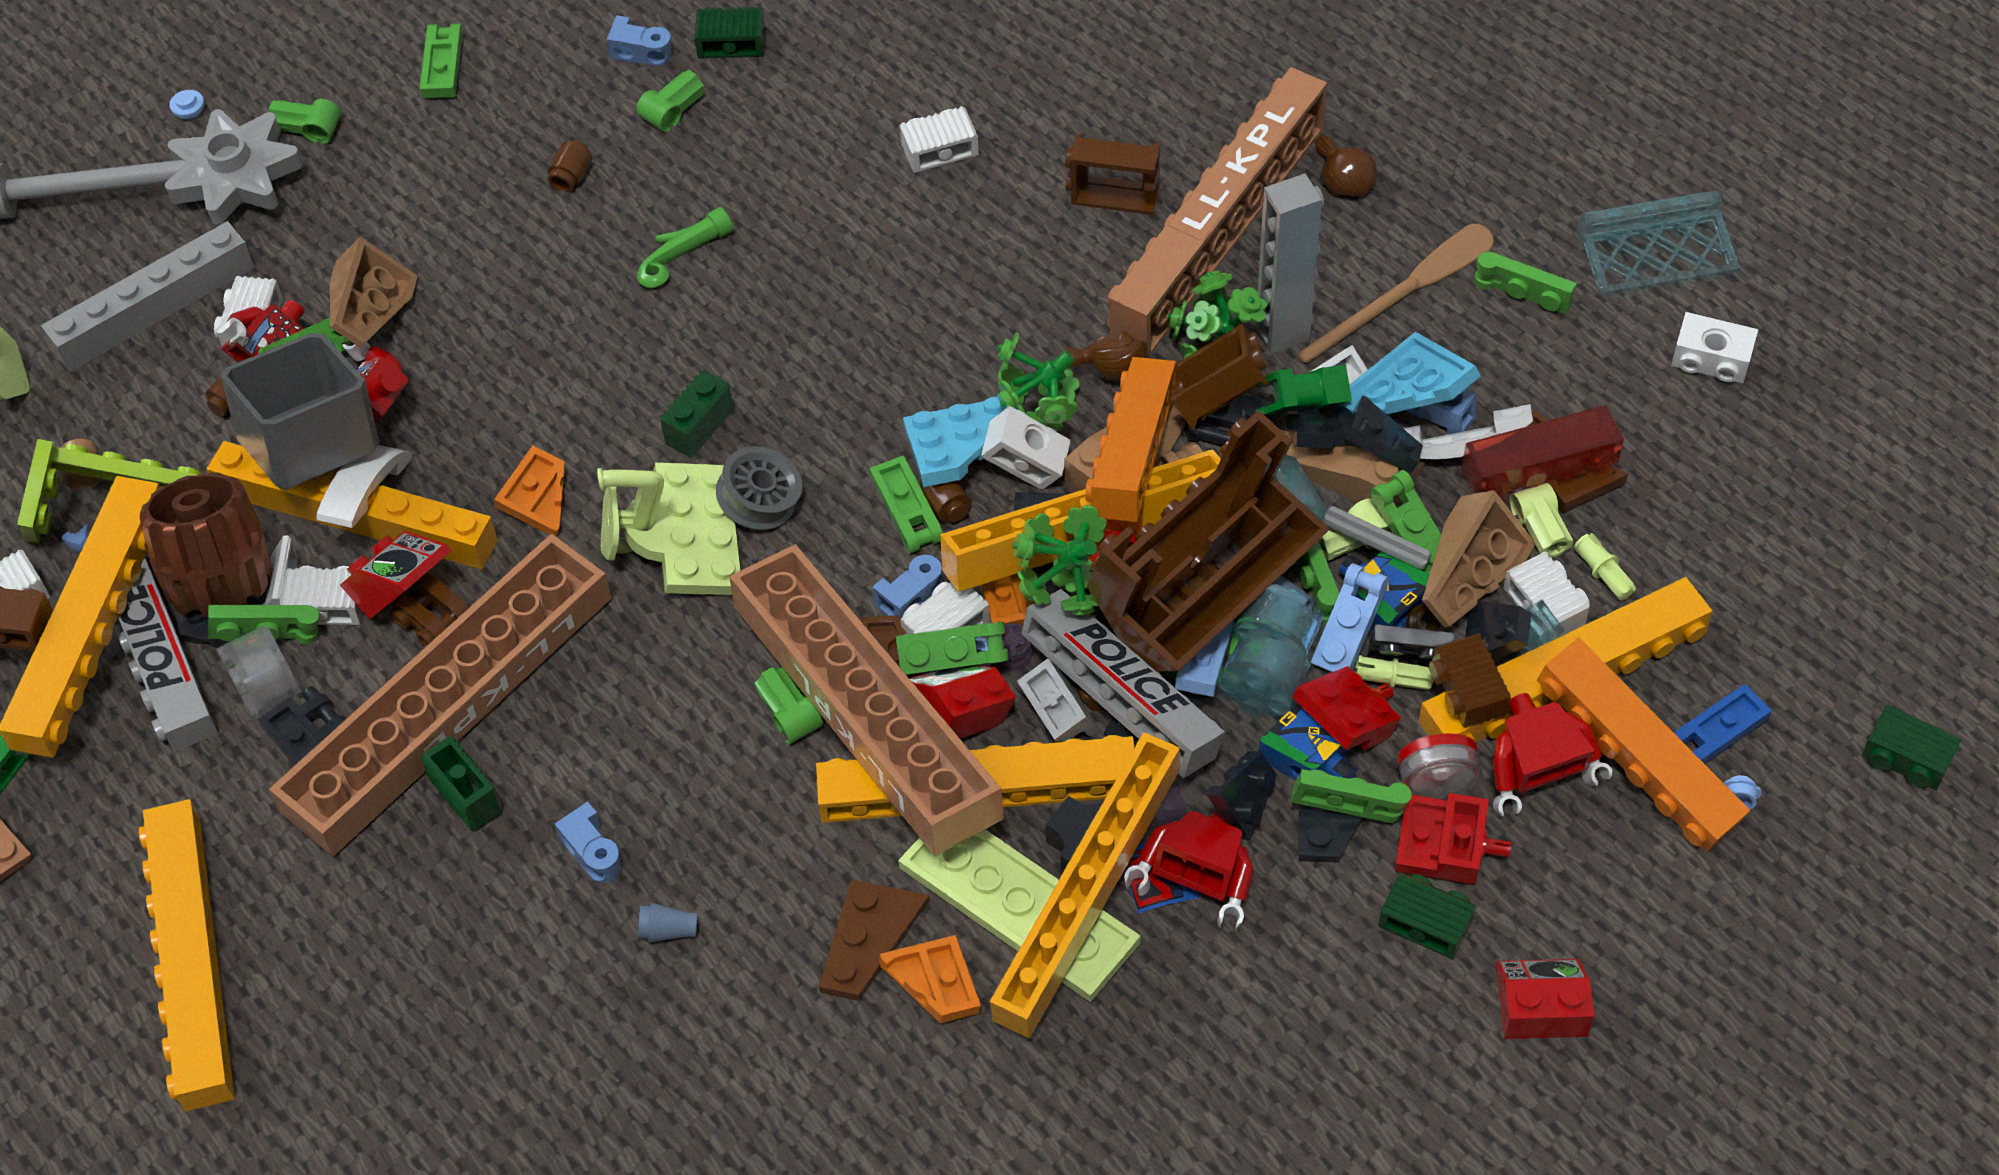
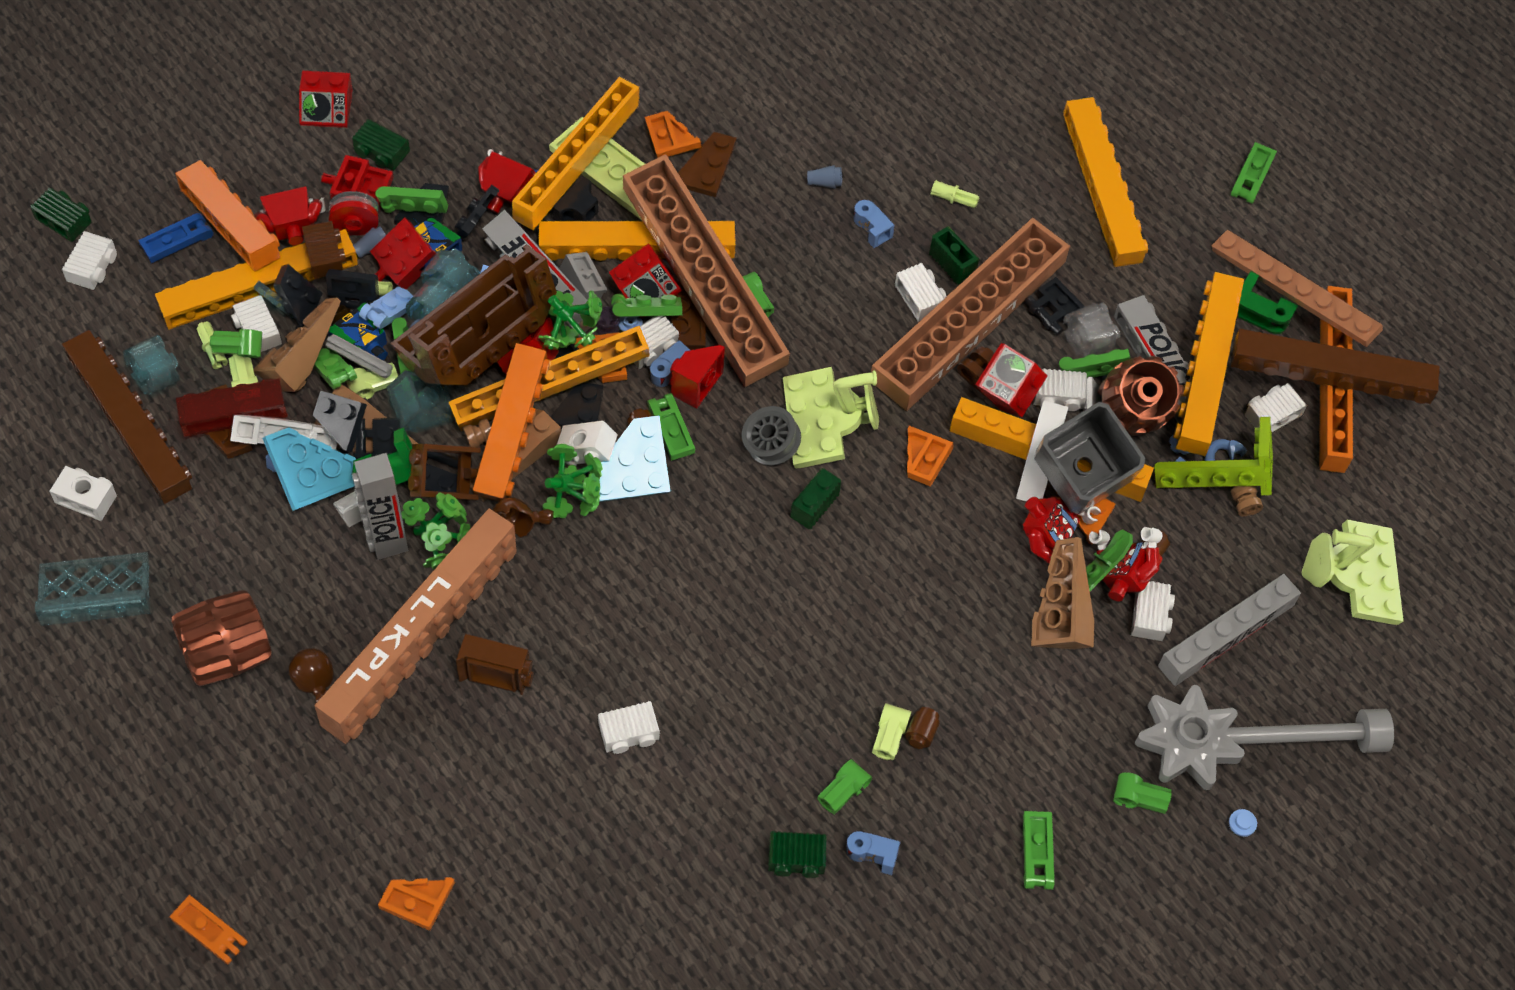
camera: 175 degrees right, 5 degrees up
(448, 912) = (954, 194): none -> yellowish green axle
(521, 730) = (919, 290): none -> white brick
(608, 166) = (892, 726): none -> yellowish green piece
(681, 242) = (807, 665): bright green plant -> none
(868, 551) = (696, 374): none -> red slope
(1393, 742) = (369, 241): none -> sand blue cone
(1444, 261) = (265, 586): medium nougat piece -> none
(1466, 163) = (221, 637): none -> copper wheel
(1524, 282) = (204, 558): bright green plate -> none
(1561, 537) = (243, 343): none -> bright green piece
(1680, 508) = (151, 365): none -> clear light blue brick
(1696, 455) = (127, 416): none -> reddish brown brick
(1744, 789) = (174, 199): light blue plate -> none
(1835, 676) = (89, 260): none -> white brick

